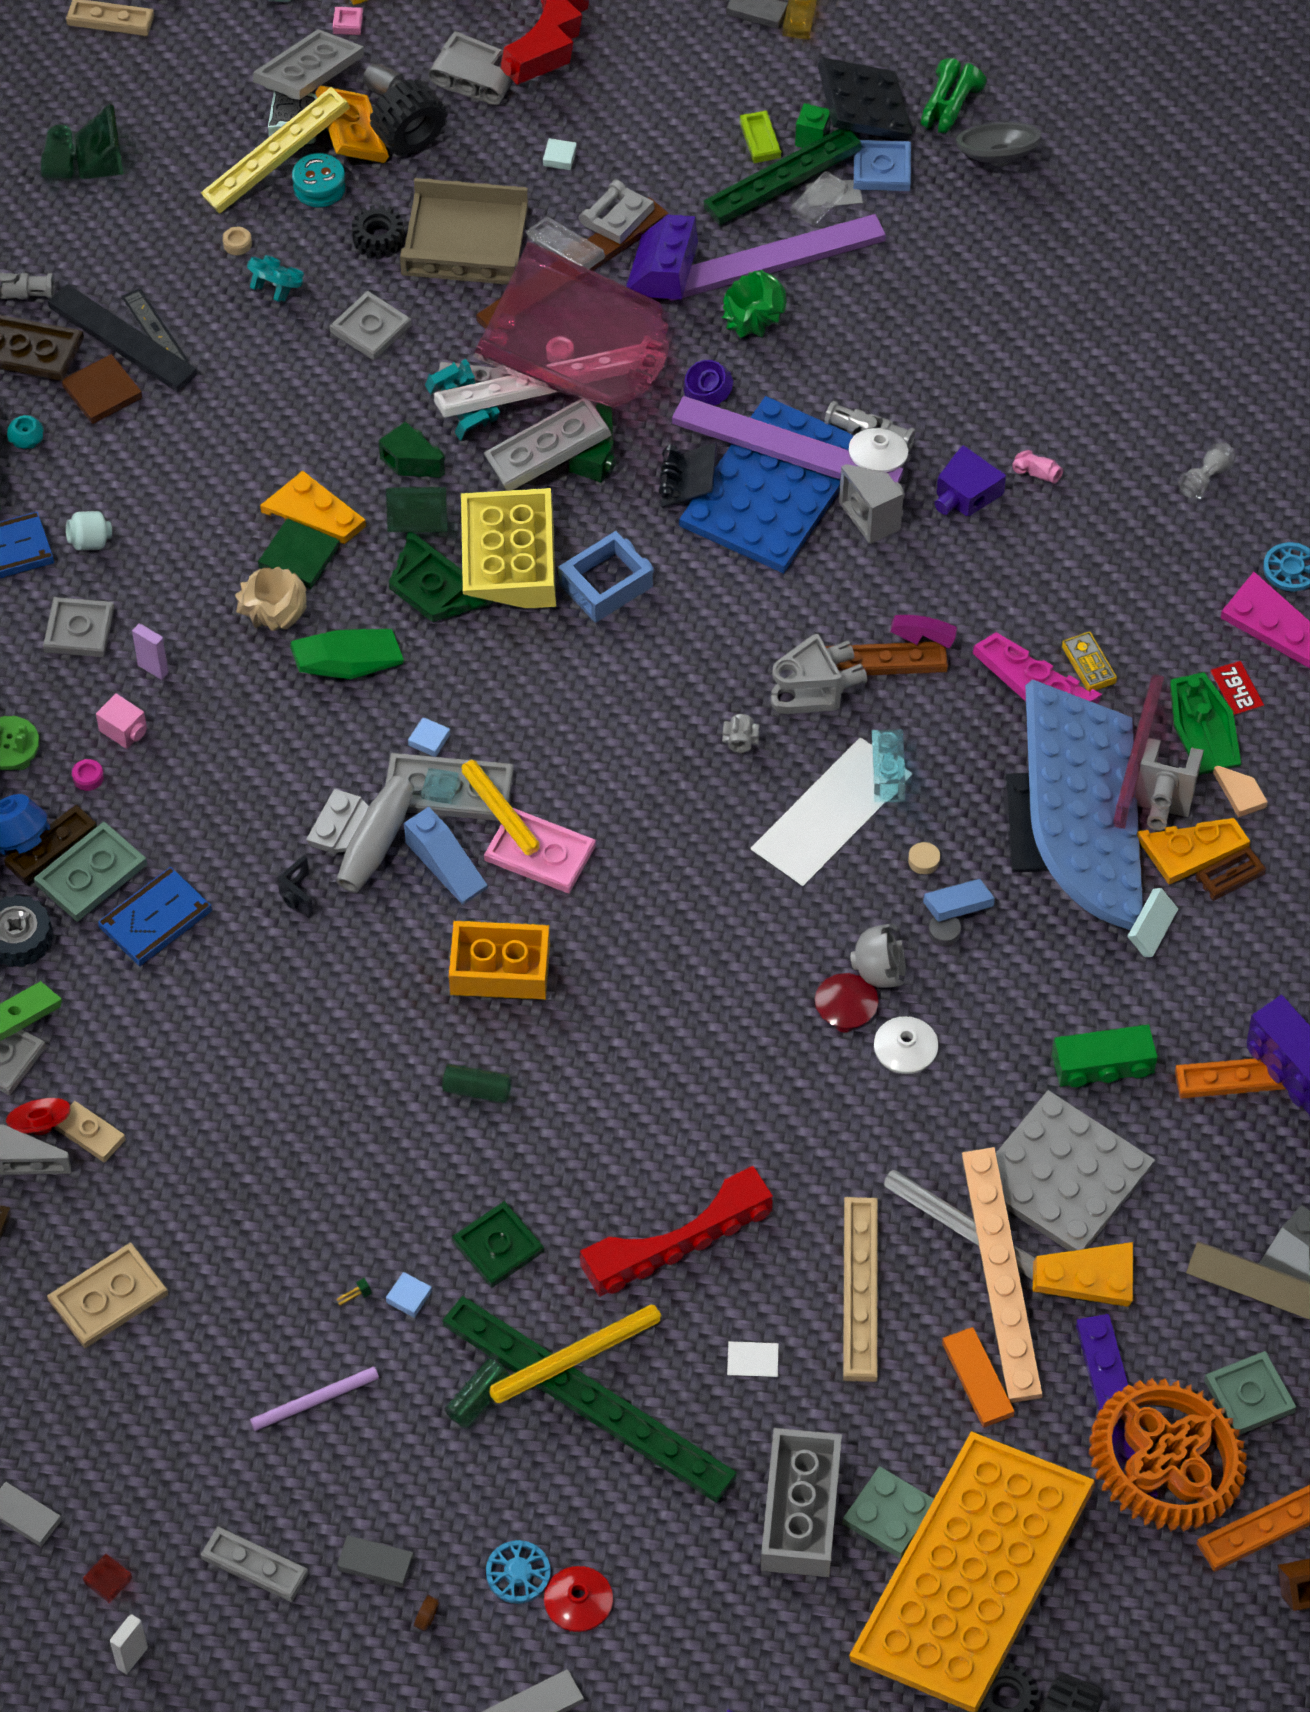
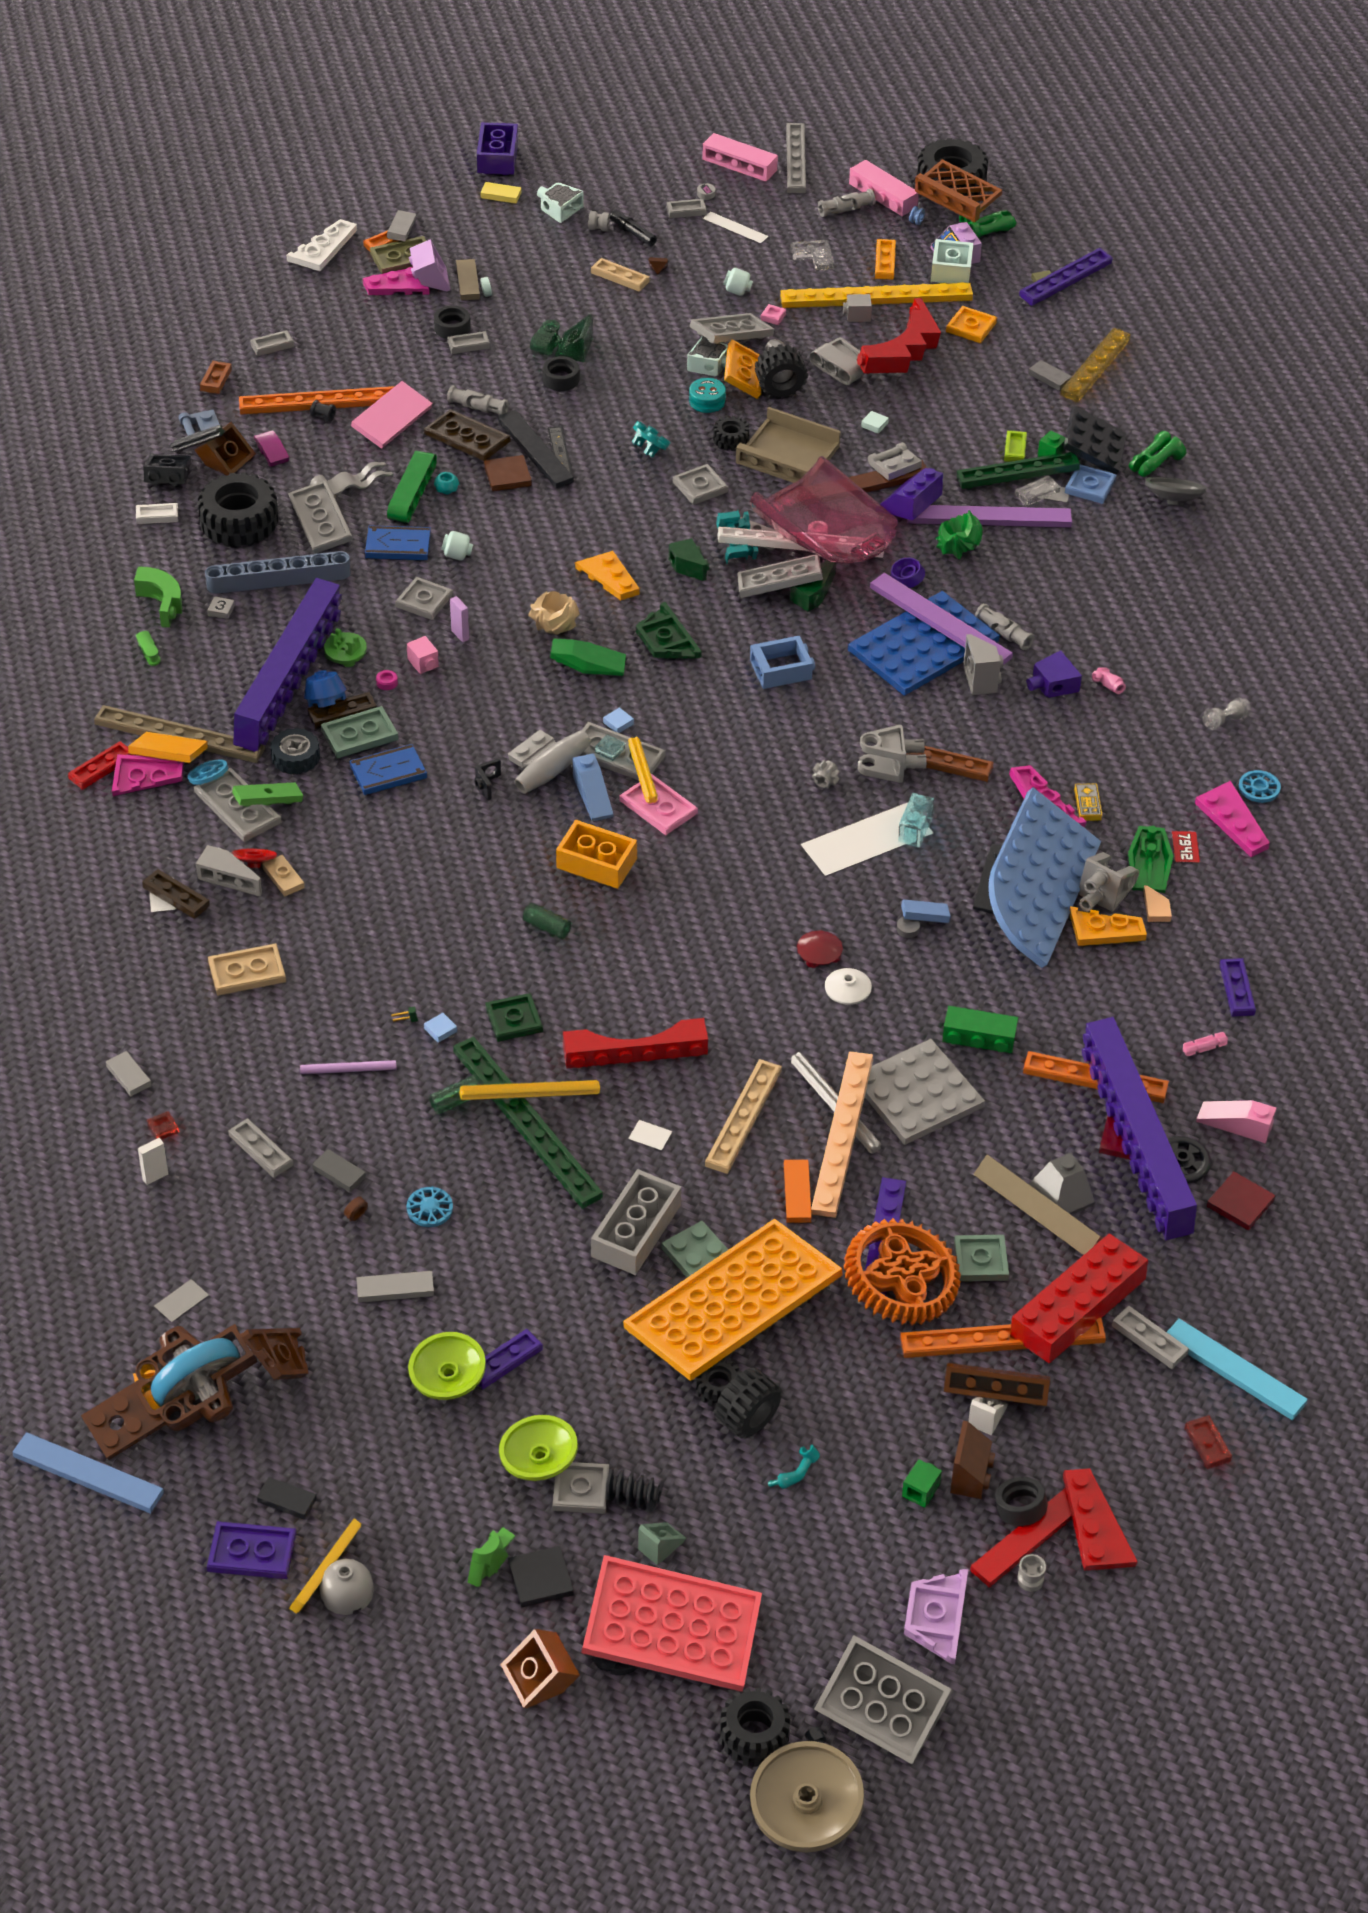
camera: 20 degrees right, 10 degrees down
(108, 221) = (559, 364): none -> black tyre
(237, 240) = (637, 414): tan tile -> none
(275, 150) = (685, 368): light yellow tile -> none
(300, 551) = (589, 595): dark green tile -> none
(417, 509) = (674, 587): clear green slope -> none
(509, 547) = (725, 626): light yellow slope -> none
(565, 243) = (852, 470): clear tile -> none
(578, 1613) = (461, 1235): red dish -> none
(686, 473) = (863, 618): black hinge -> none
(878, 450) = (1002, 636): white dish -> none
(879, 957) = (853, 926): light grey cylinder -> none
(914, 626) = (976, 747): magenta slope -> none
(924, 858) = (915, 882): tan tile -> none
(1088, 1274) = (902, 1152): light orange wing -> none
(1142, 735) = (1105, 844): clear pink tile -> none
(1152, 922) = (1054, 962): light aqua tile -> none
(1236, 882) = (1127, 952): reddish brown tile -> none

